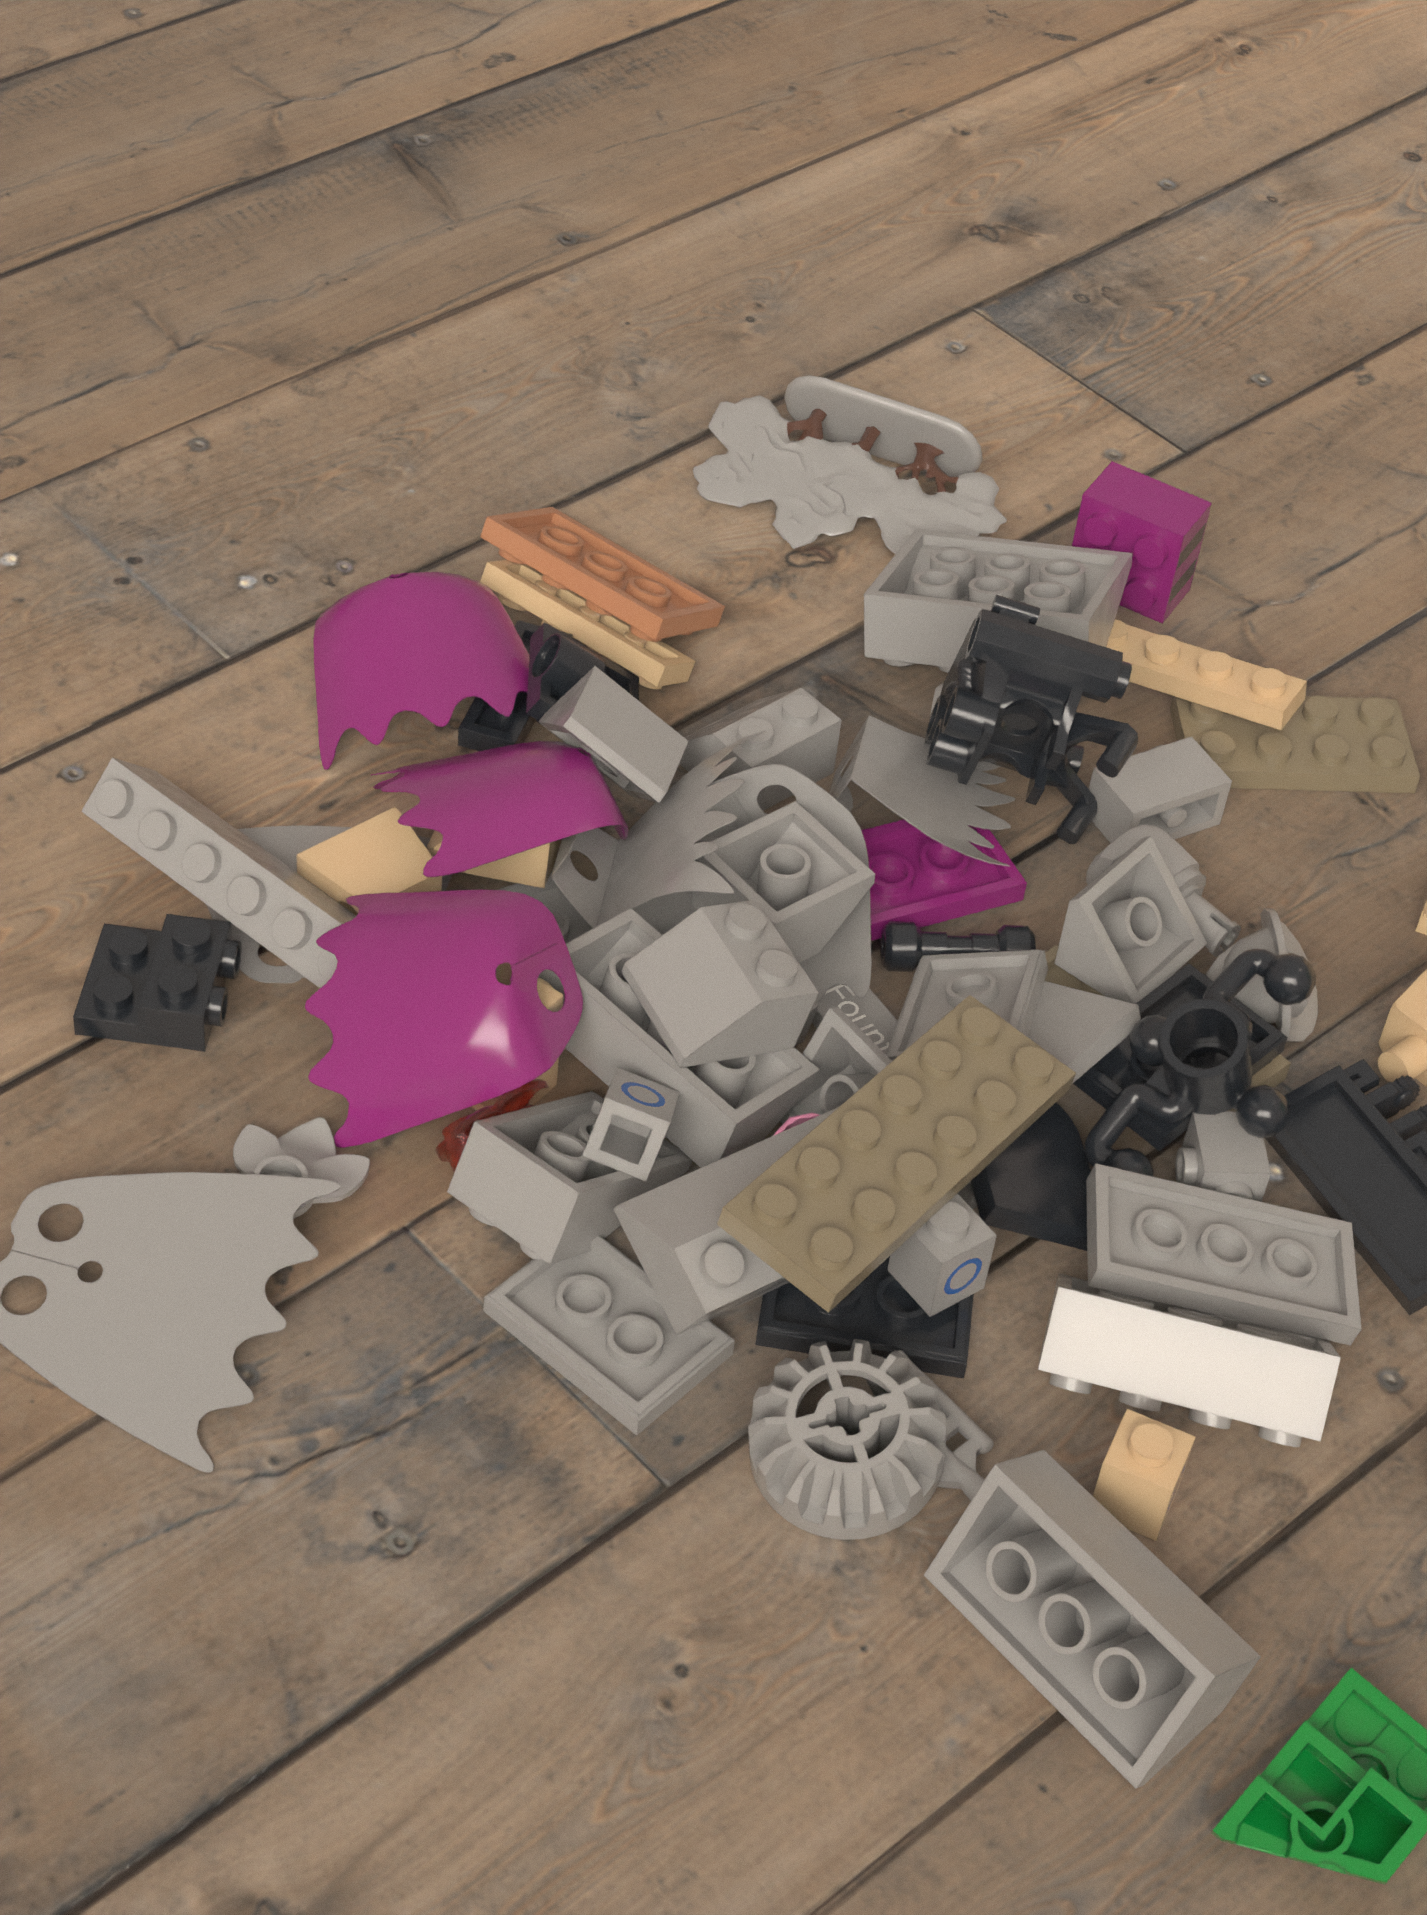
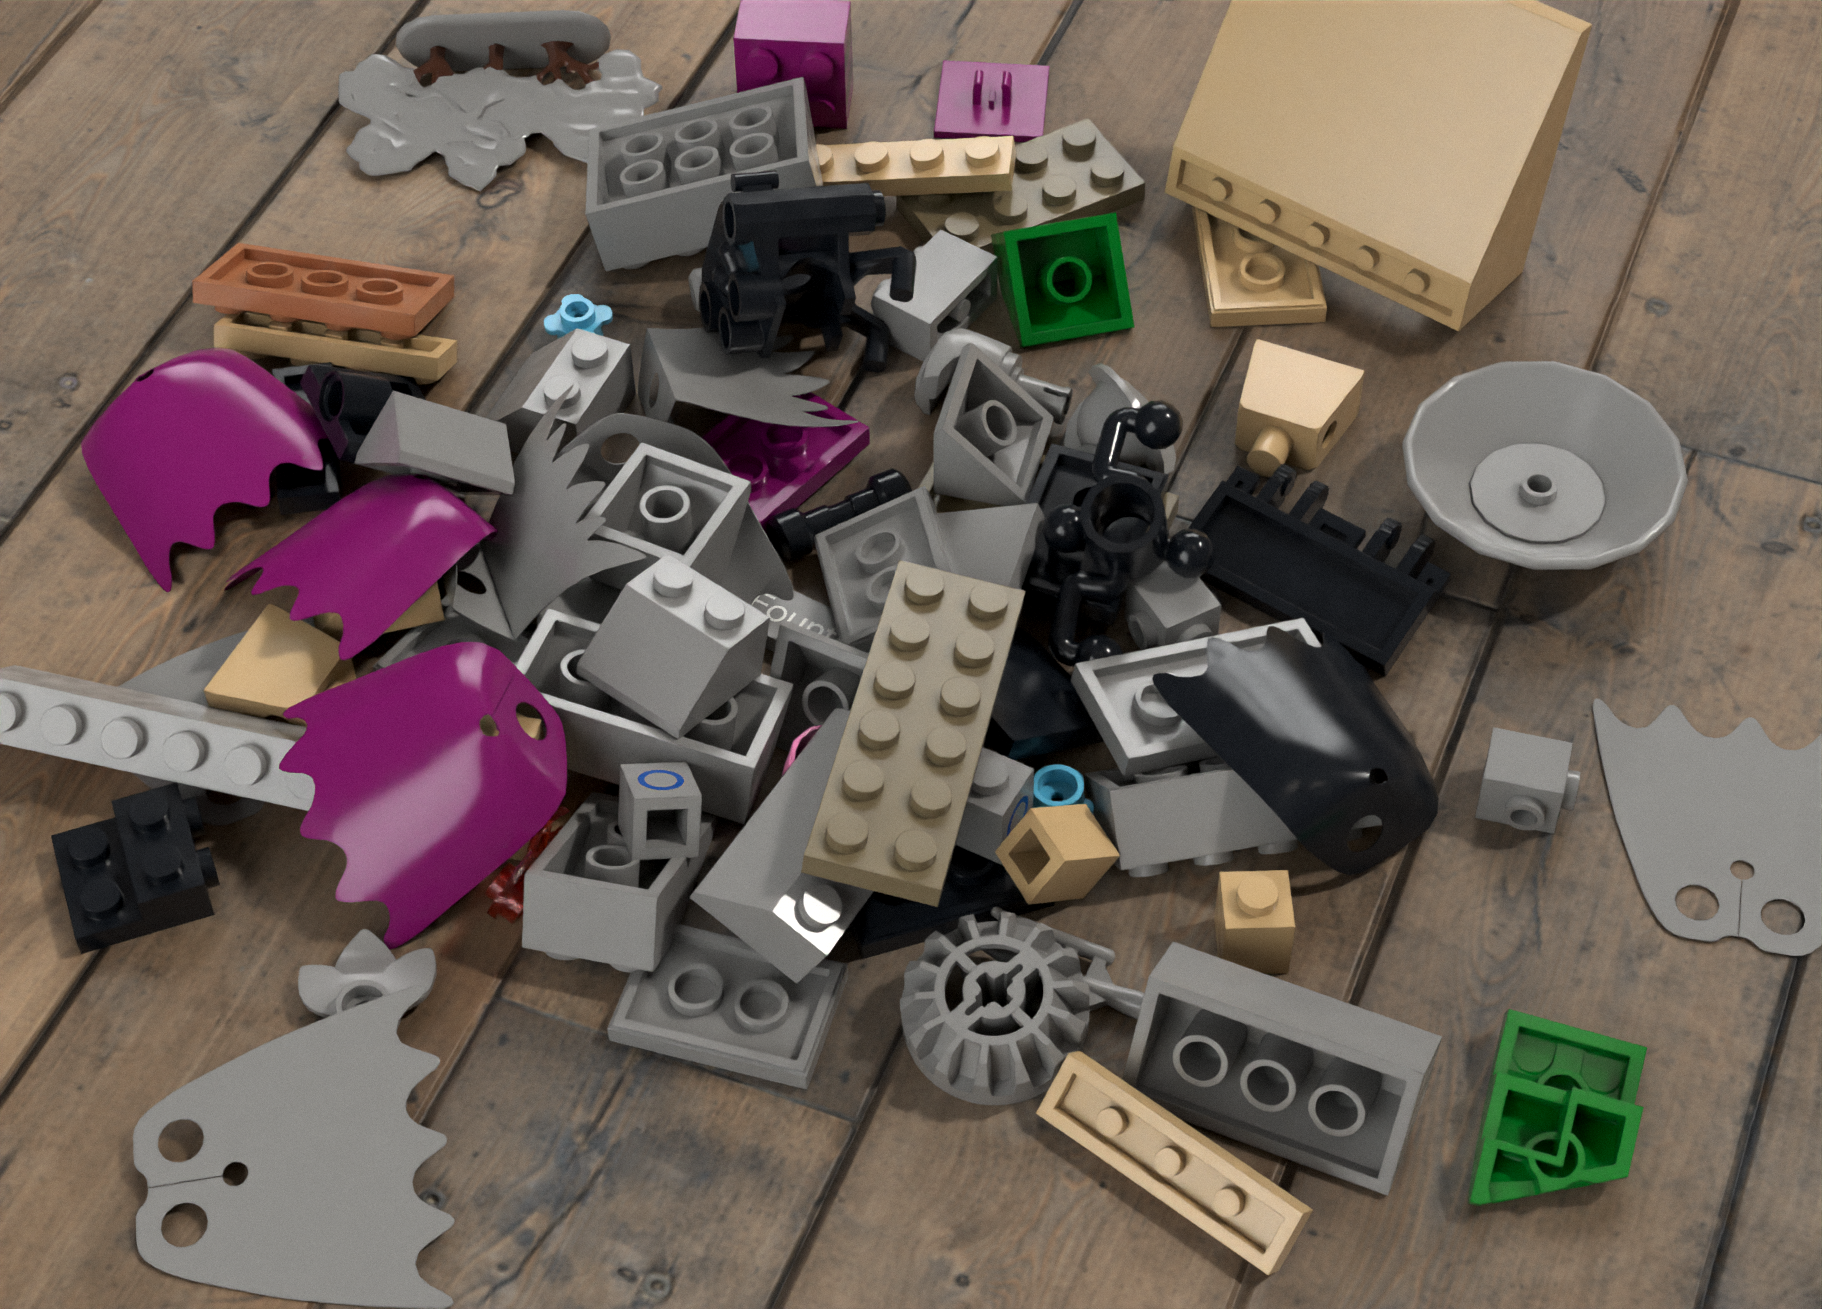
camera: 20 degrees left, 5 degrees up
(818, 682) = (580, 314): none -> medium azure plate
(940, 1658) = (1174, 1162): none -> tan plate
(983, 1326) = (1057, 853): none -> tan brick
(1021, 1267) = (1061, 783): none -> medium azure plate
(1274, 1319) = (1304, 737): none -> black piece
(1290, 828) = (1064, 279): none -> green slope
(1316, 649) = (991, 100): none -> piece

